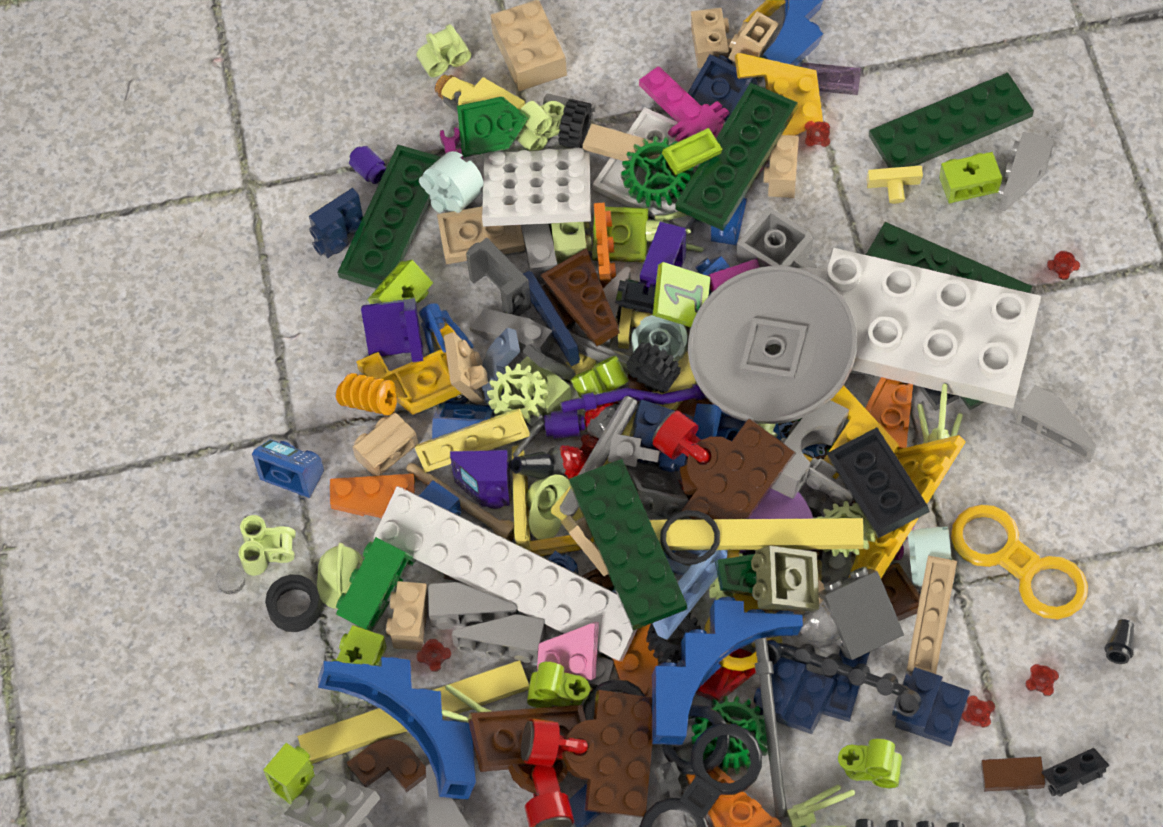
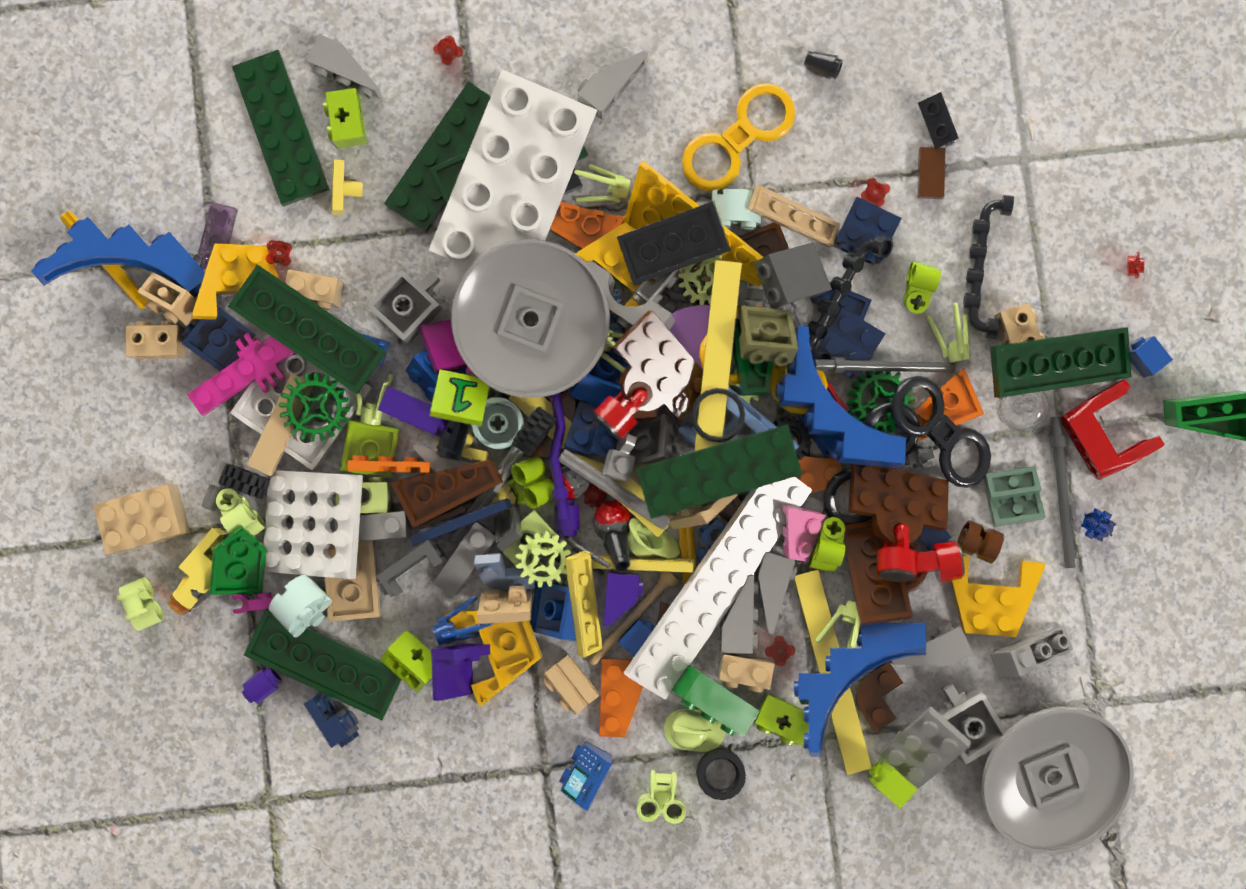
camera: 90 degrees left, 25 degrees up
(367, 394) = (521, 698): light orange piece -> none
(692, 151) = (303, 370): lime tile -> none
(1045, 672) = (855, 130): clear red plate -> none

